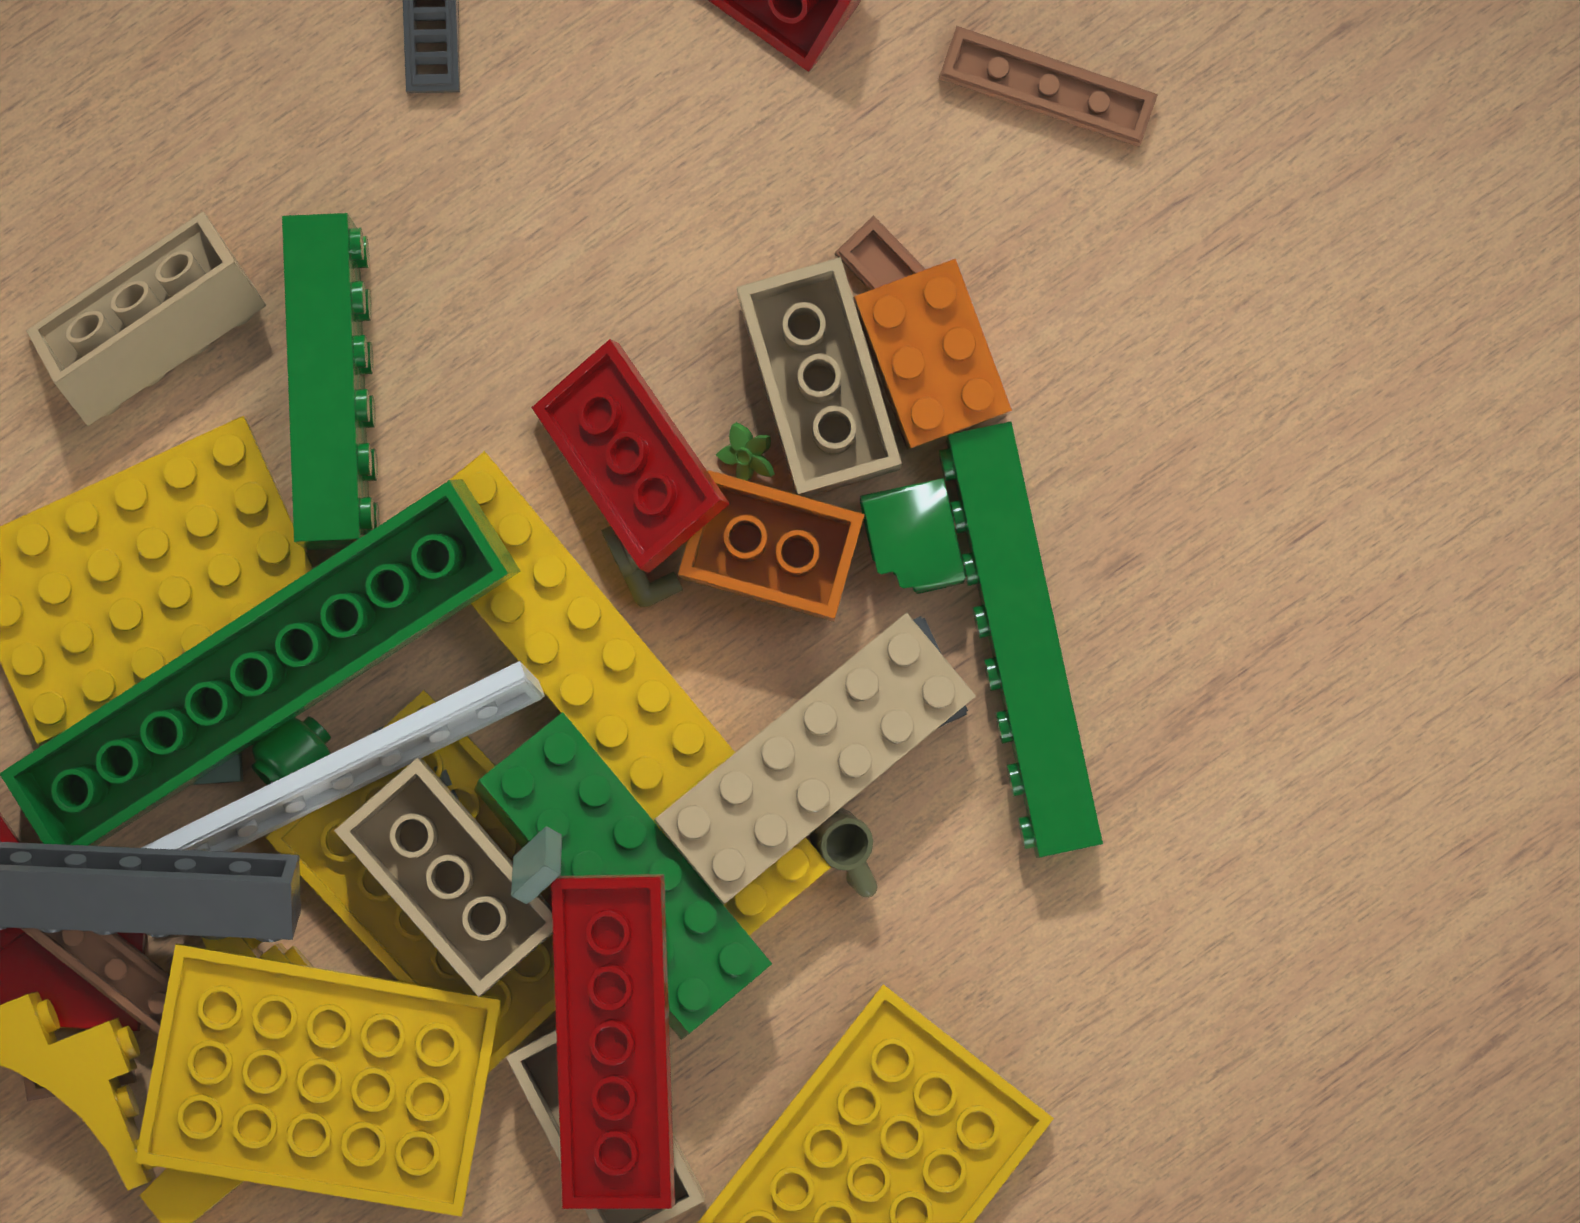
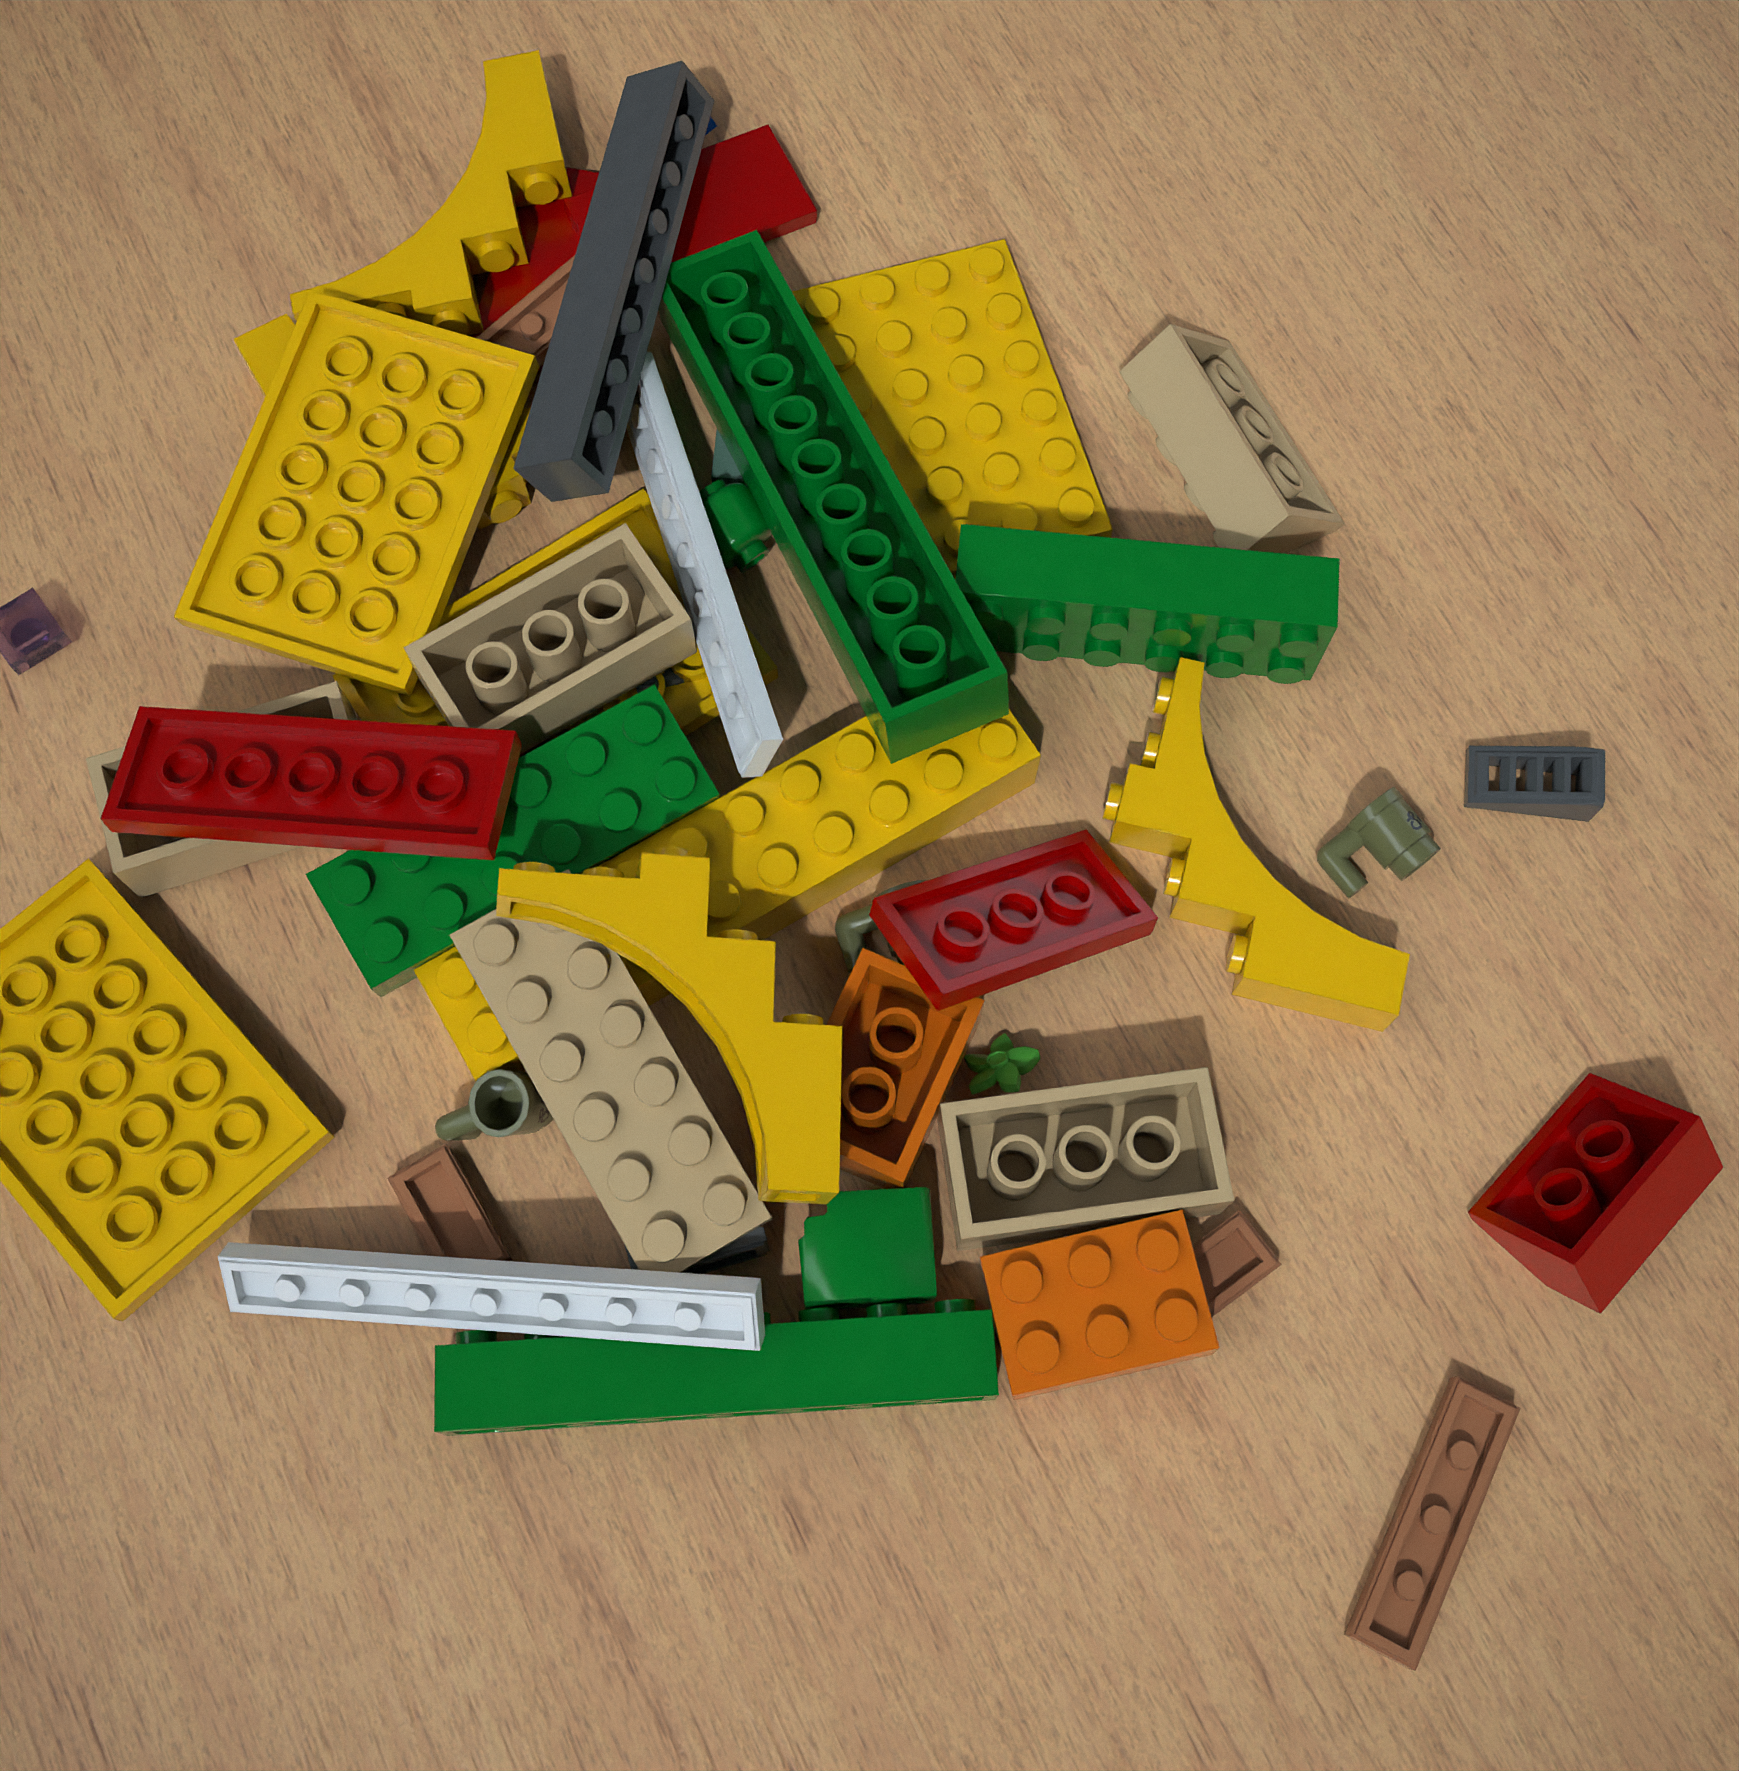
camera: 100 degrees right, 15 degrees down
(501, 153) = (1389, 833): none -> olive piece
(536, 865) = (536, 722): sand green tile -> none
(563, 294) = (1217, 882): none -> yellow arch
(693, 728) = (727, 981): none -> yellow arch
(934, 876) = (447, 1208): none -> nougat tile
(996, 822) = (495, 1295): none -> white tile

